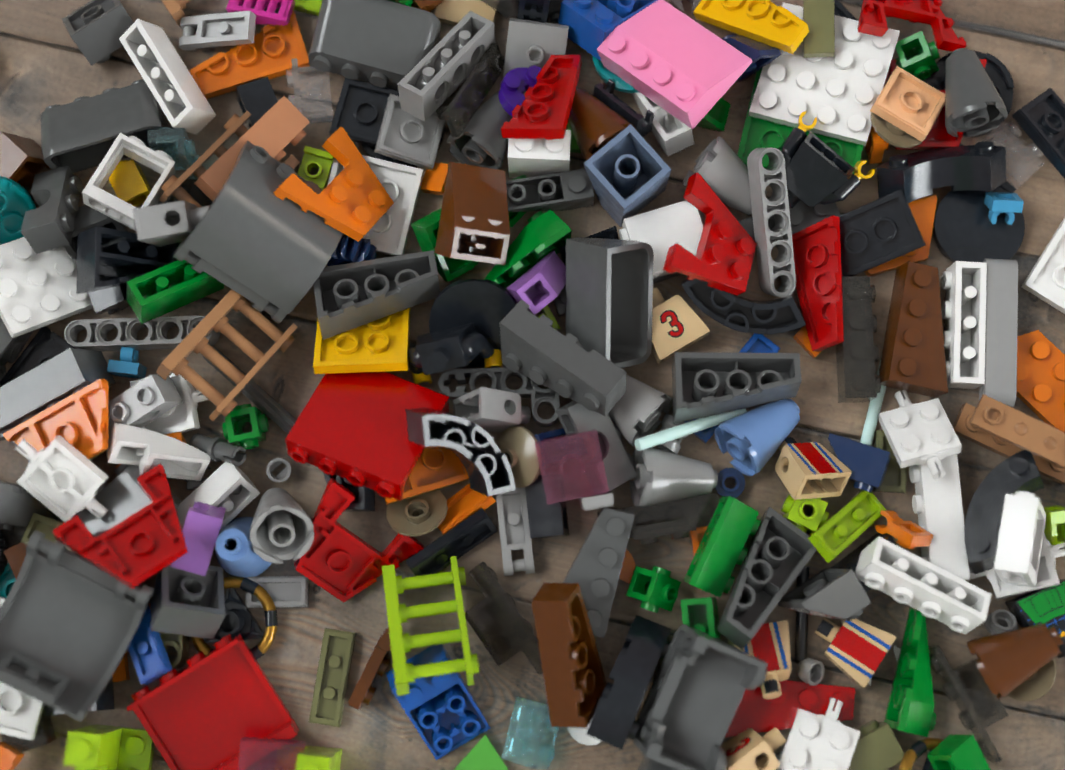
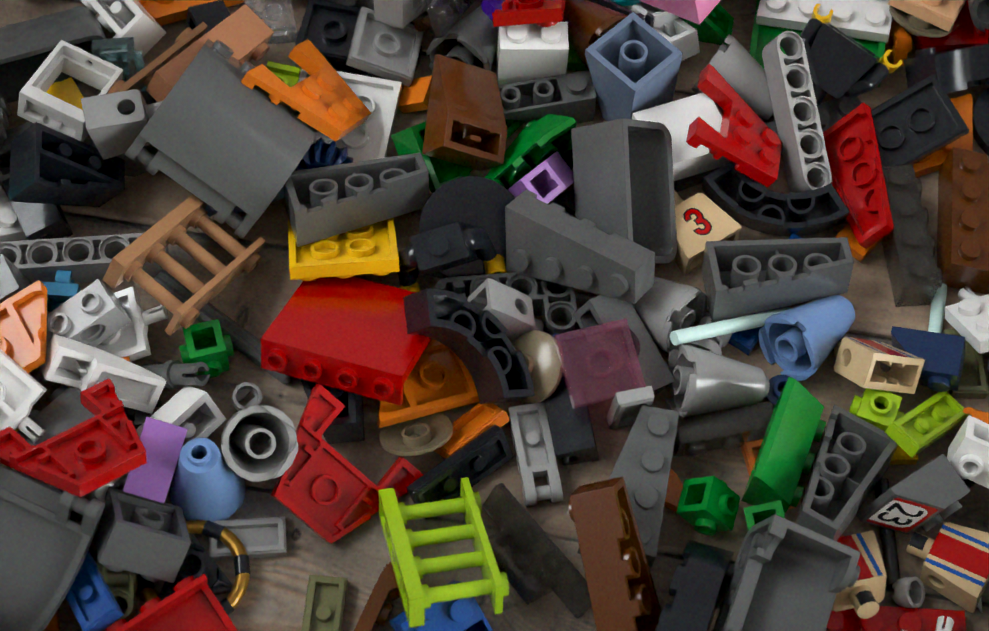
camera: 10 degrees left, 20 degrees down
(168, 289) = (119, 201): green brick -> none

